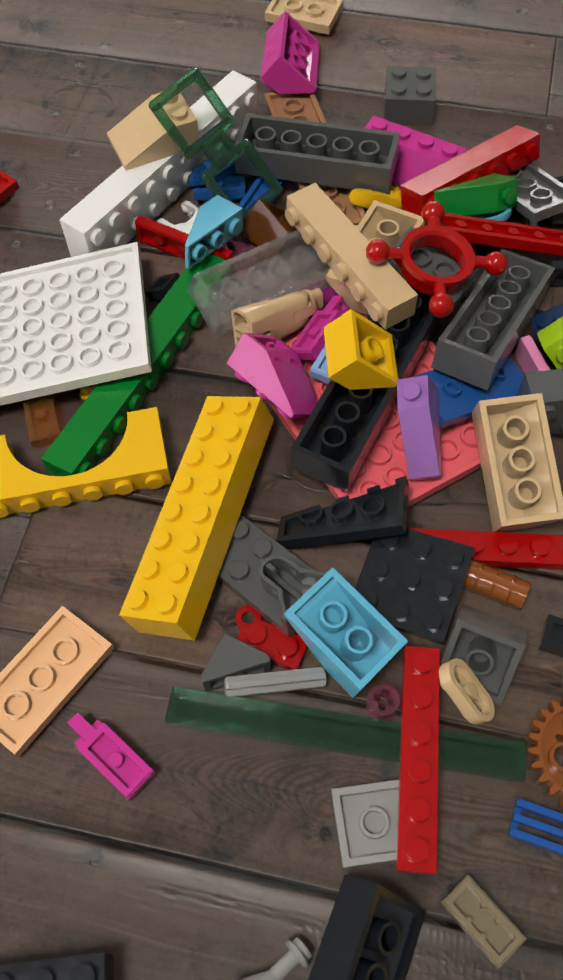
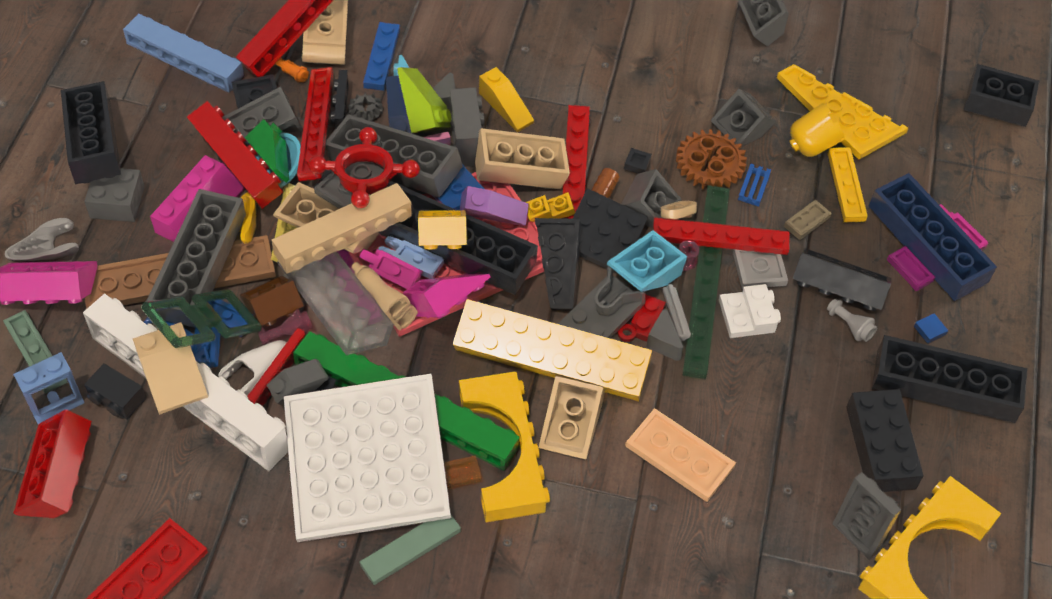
camera: 95 degrees left, 5 degrees down
(82, 97) = (53, 466): none -> red slope
(105, 540) = (571, 417): none -> tan slope
(111, 756) = (729, 408): dark pink hinge -> none
(156, 63) = (42, 376): none -> medium blue window
(160, 255) = (297, 380): none -> dark grey slope
(213, 226) = (278, 337): medium azure slope -> none
(240, 62) = (29, 342): none -> sand green tile
(285, 800) = (750, 311): none -> white plate
(341, 57) = (40, 245): none -> light grey animal
(443, 510) = (557, 207): none -> yellow slope
(475, 53) = (90, 133): none -> black brick

